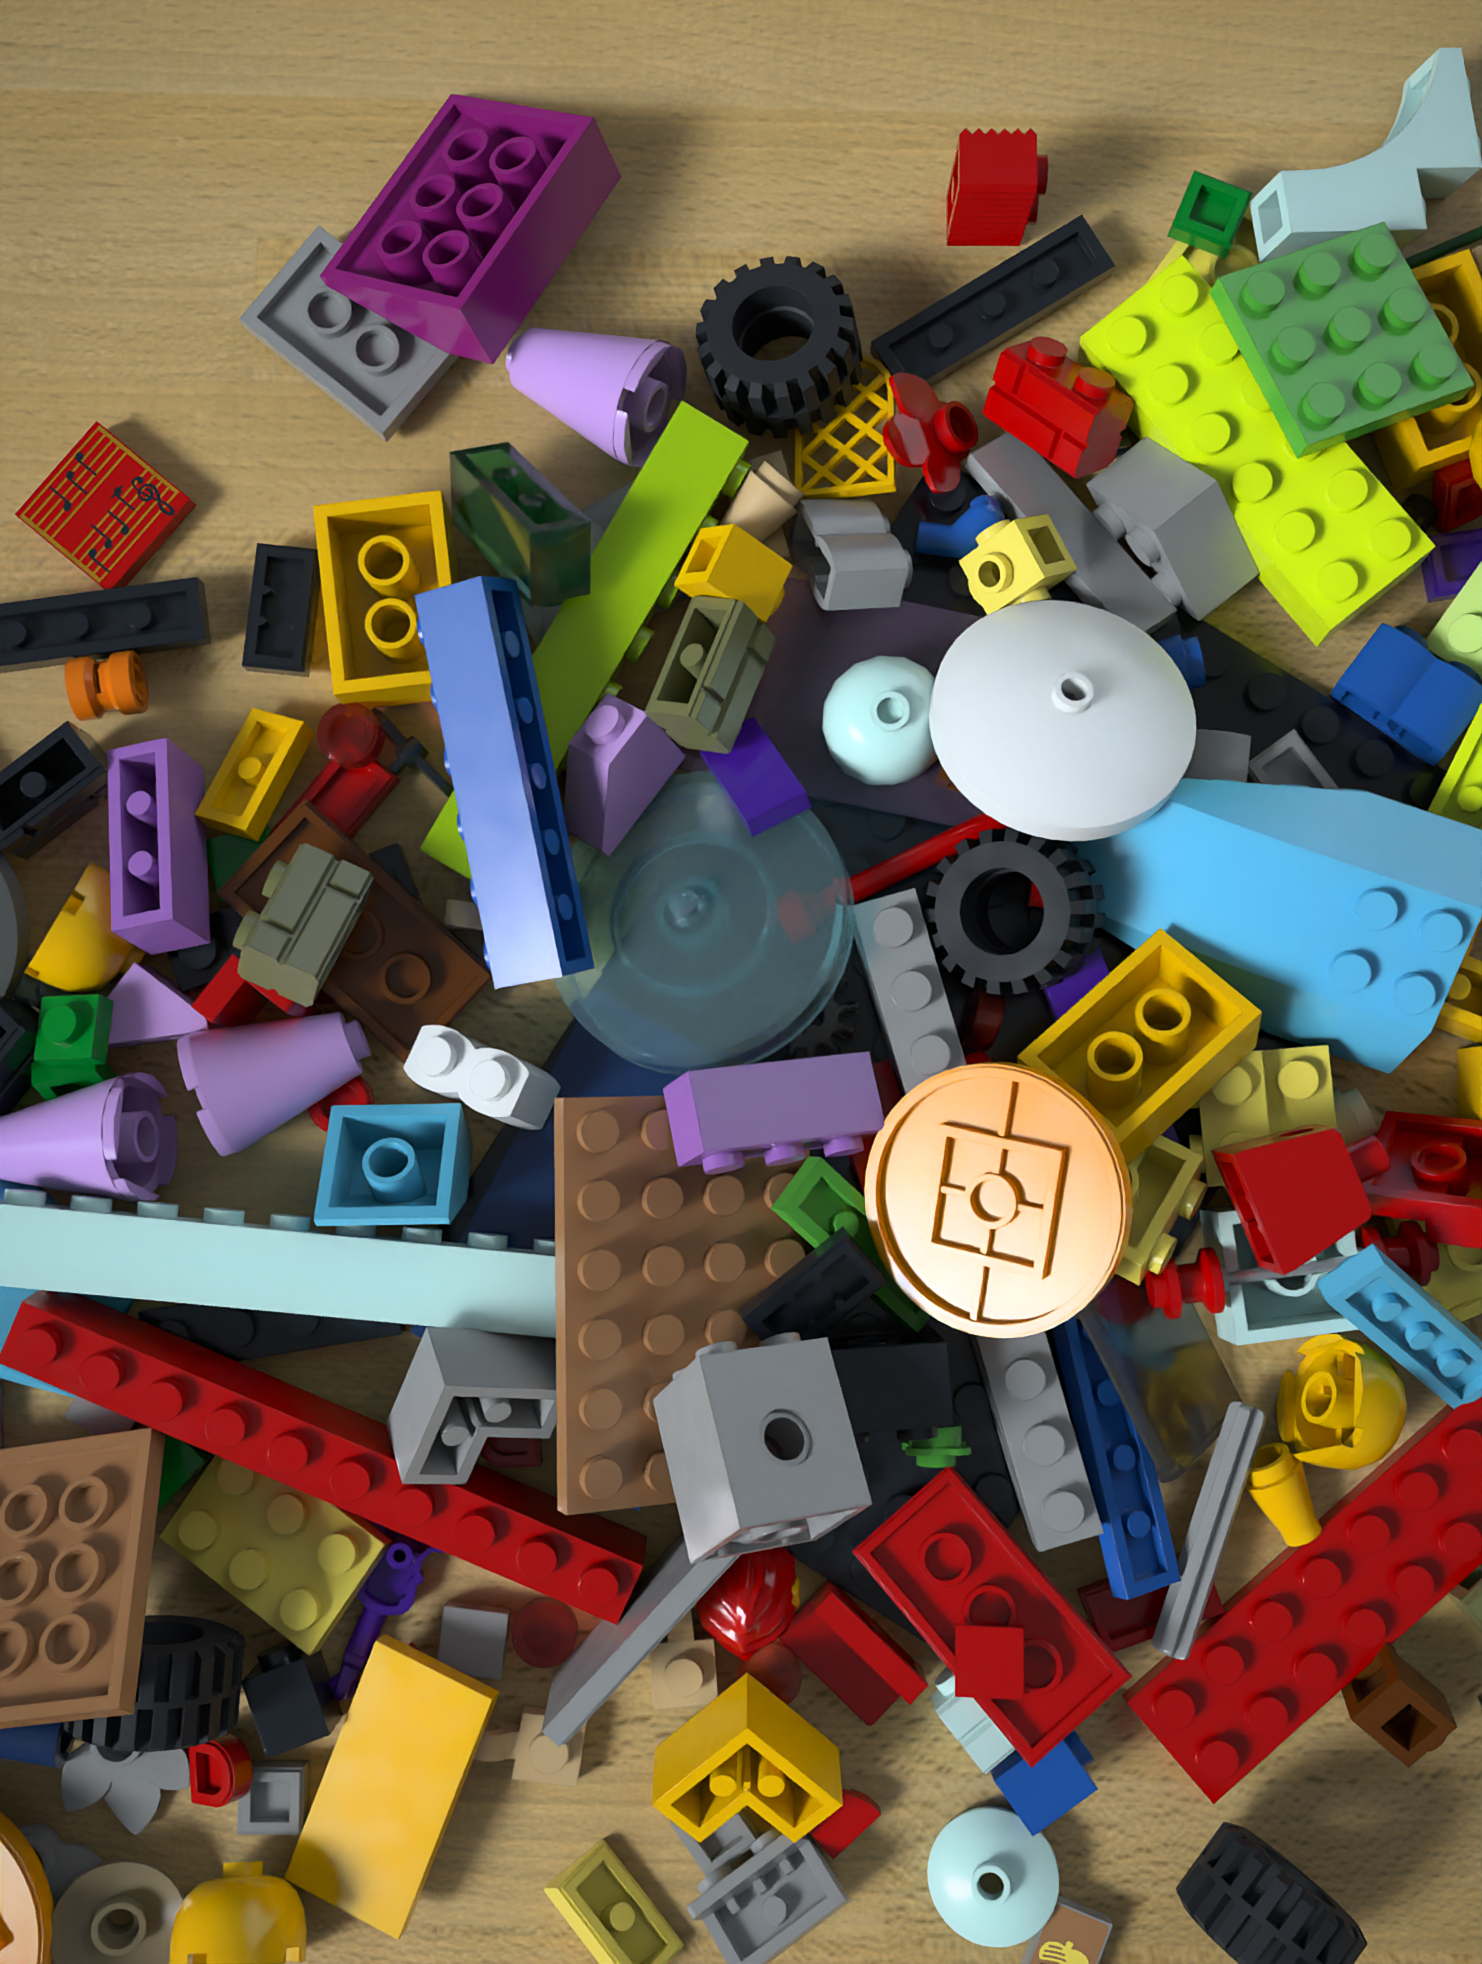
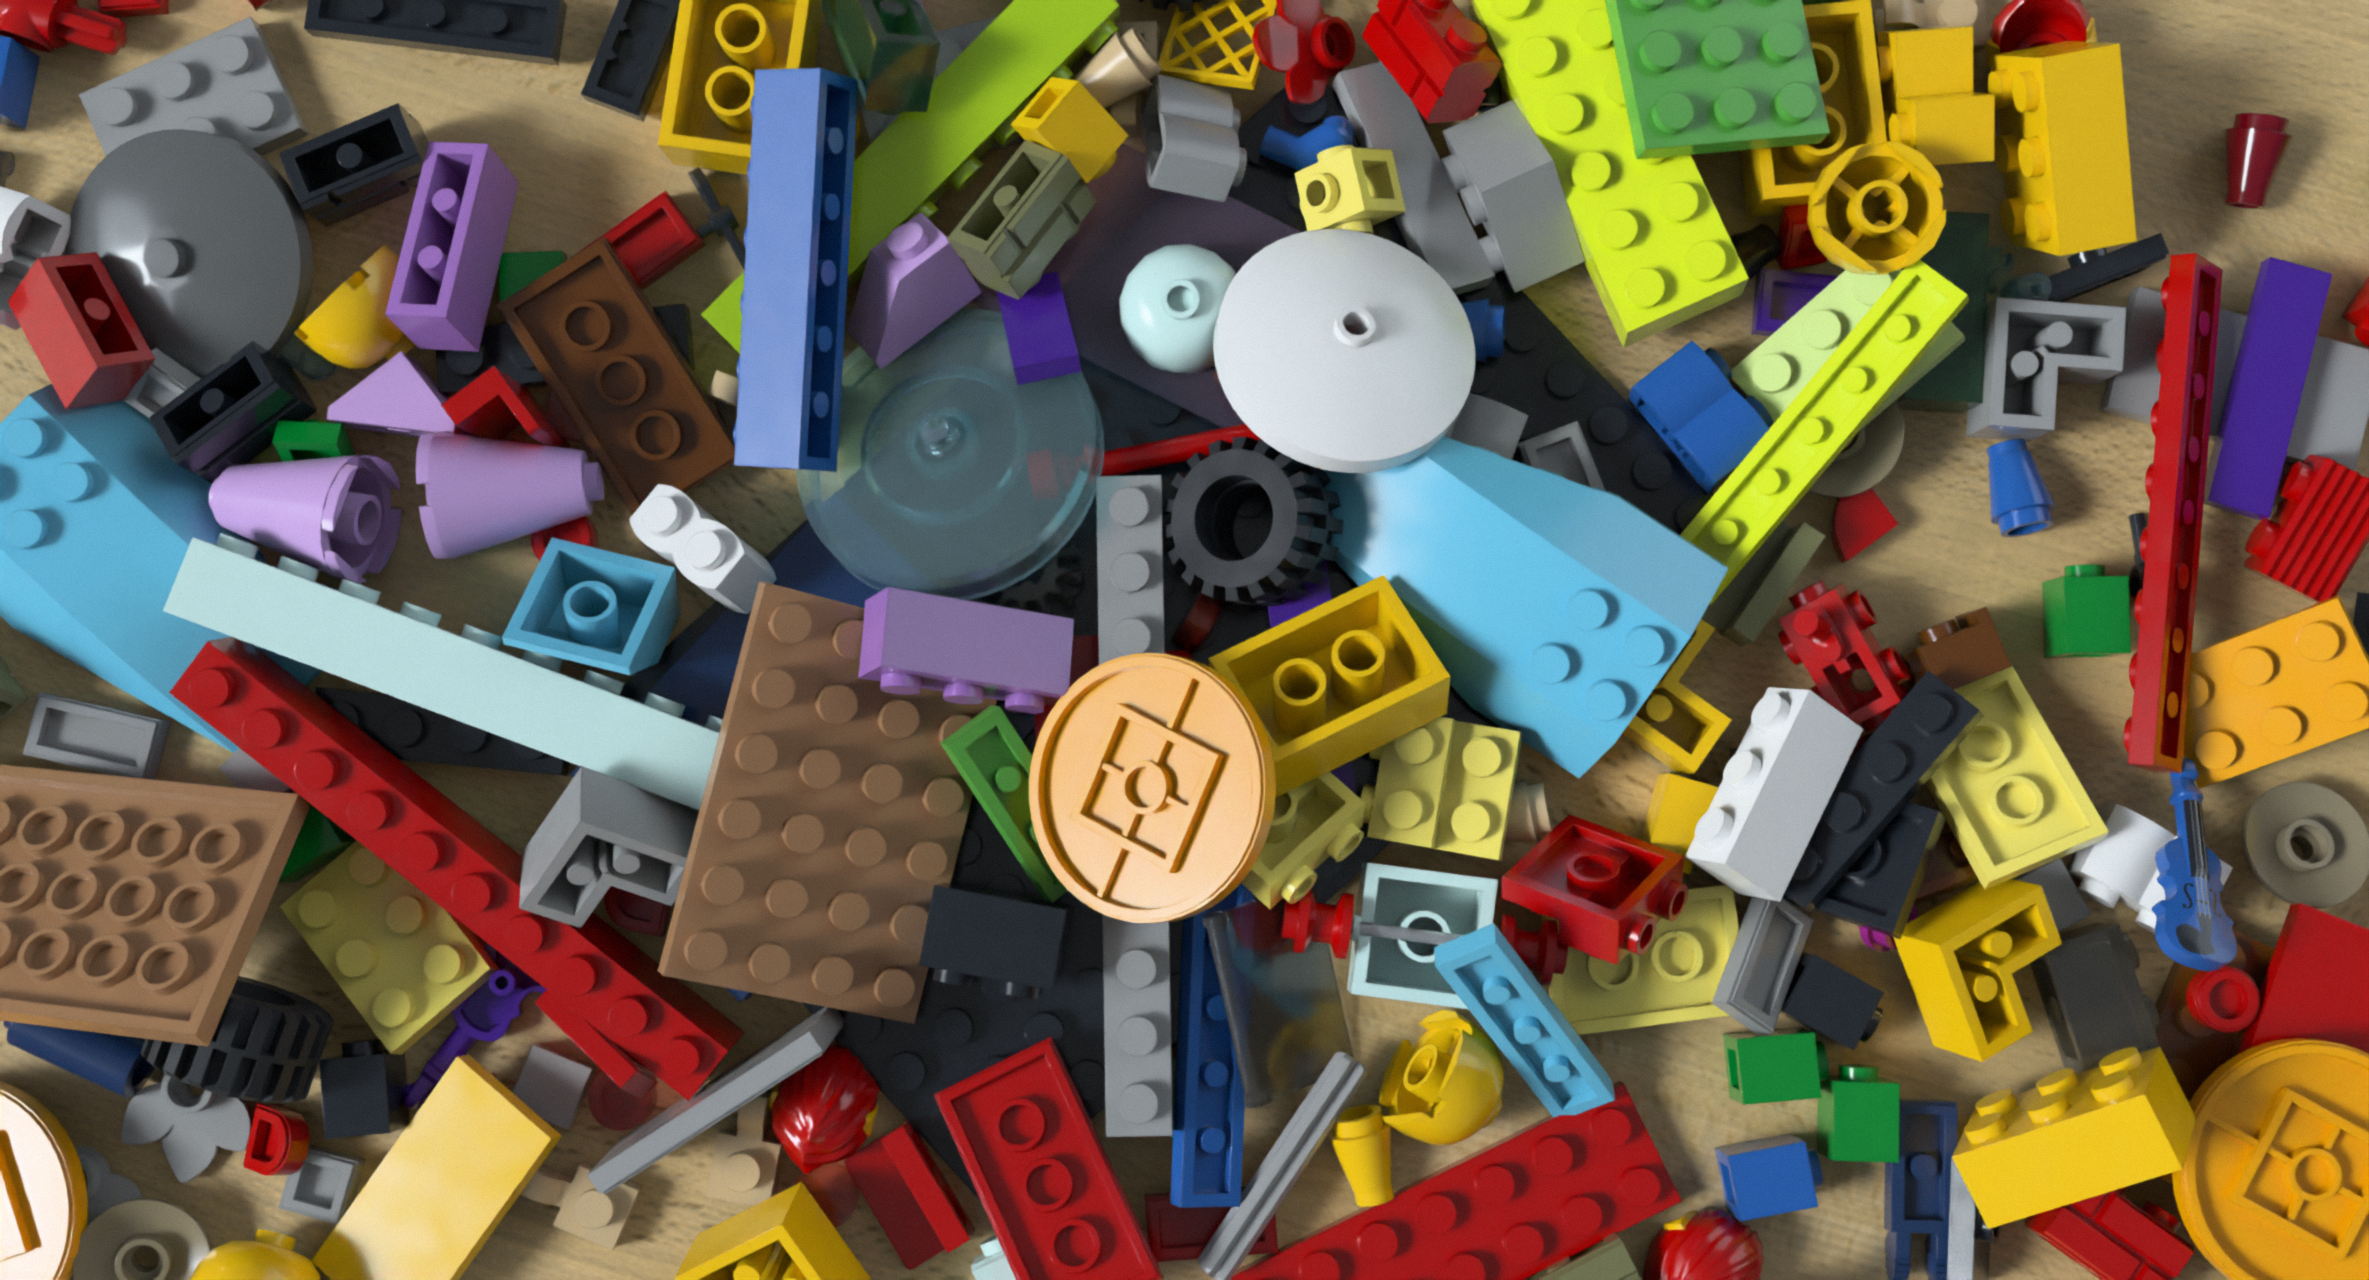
camera: 15 degrees right, 0 degrees up
(73, 1030) = (325, 400): green plate -> none
(106, 685) = (446, 79): orange wheel -> none
(254, 774) = (565, 201): yellow plate -> none
(303, 923) = (567, 355): olive brick -> none
(350, 735) = (667, 188): clear red tile -> none
(527, 1603) = (608, 1056): none -> red tile
(759, 1447) = (858, 957): light grey brick -> none
(815, 1291) = (957, 836): black plate -> none
(940, 1450) = (1042, 1015): bright green plate -> none
(989, 1661) = (1030, 1227): red tile -> none
(1299, 1190) = (1446, 858): red torso -> none

